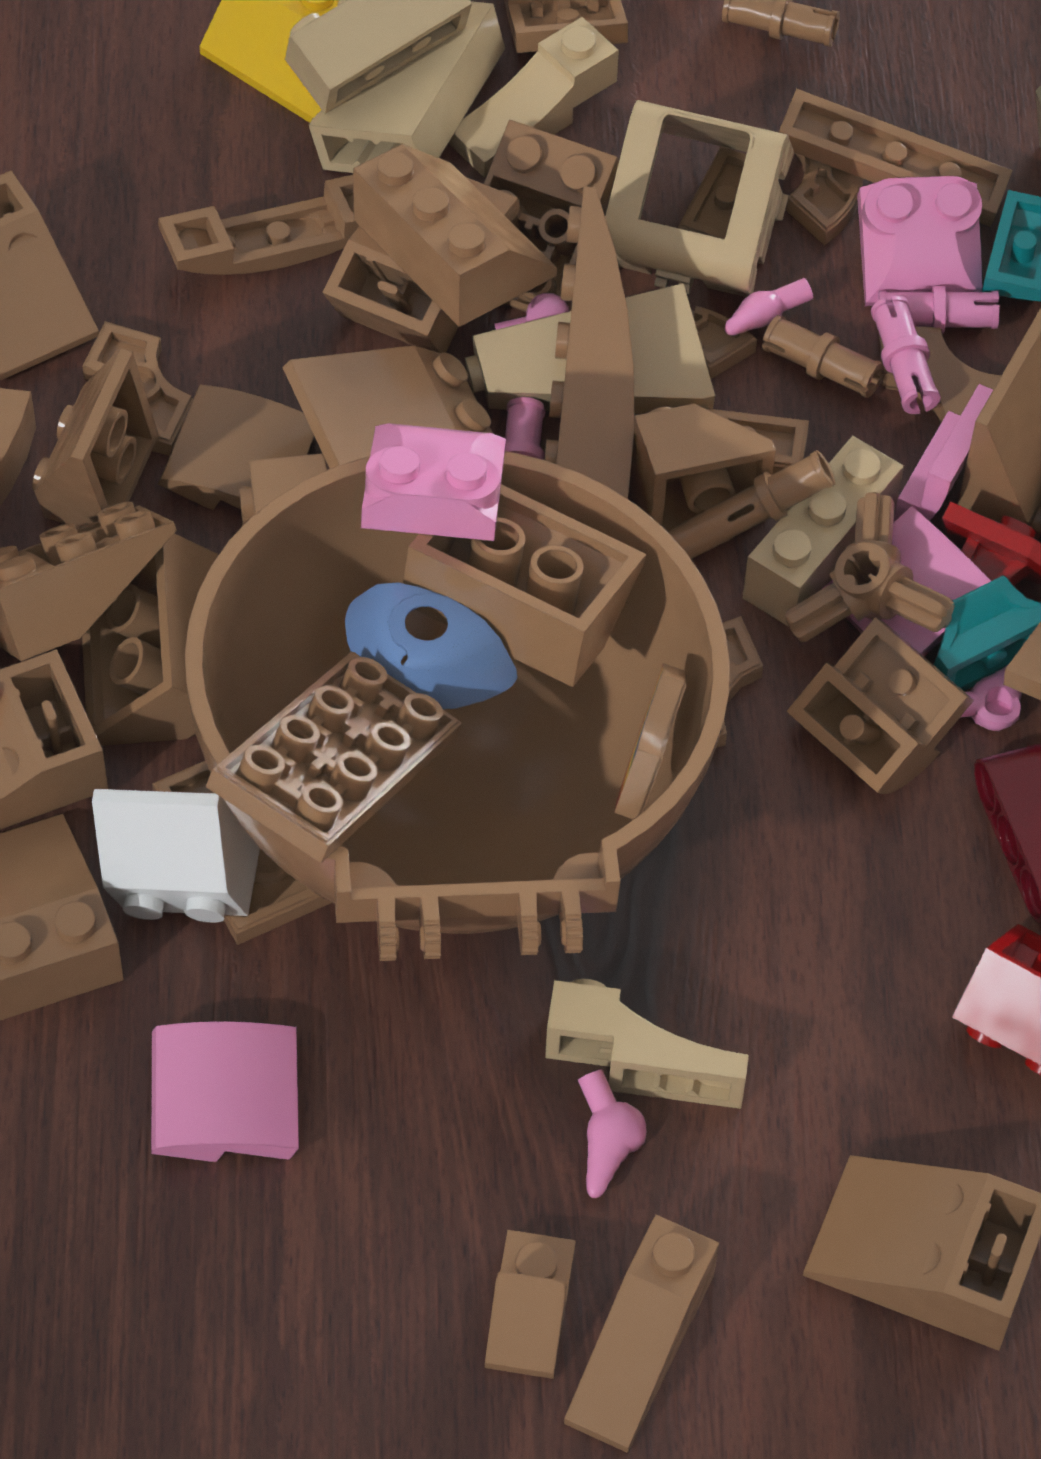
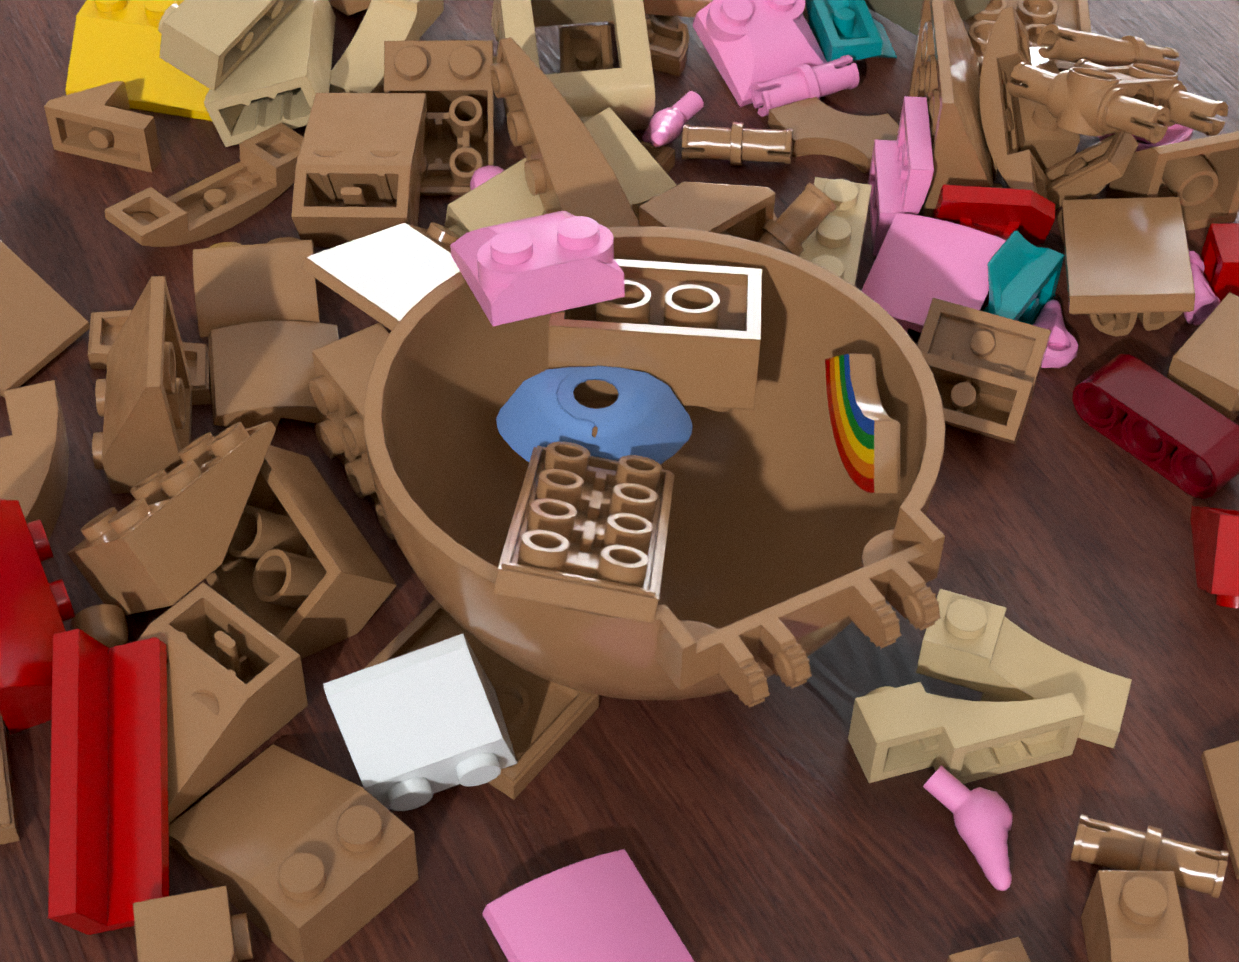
camera: 25 degrees left, 10 degrees down
(211, 111) = (103, 128): none -> medium nougat slope
(253, 337) = (254, 283): none -> medium nougat brick
(445, 233) = (383, 127): medium nougat slope -> none
(729, 1013) = (992, 655): none -> tan slope
(734, 1223) = (1136, 850): none -> medium nougat pin
(870, 581) = (911, 272): medium nougat bush -> none
(905, 354) = (809, 116): bright pink pin -> none

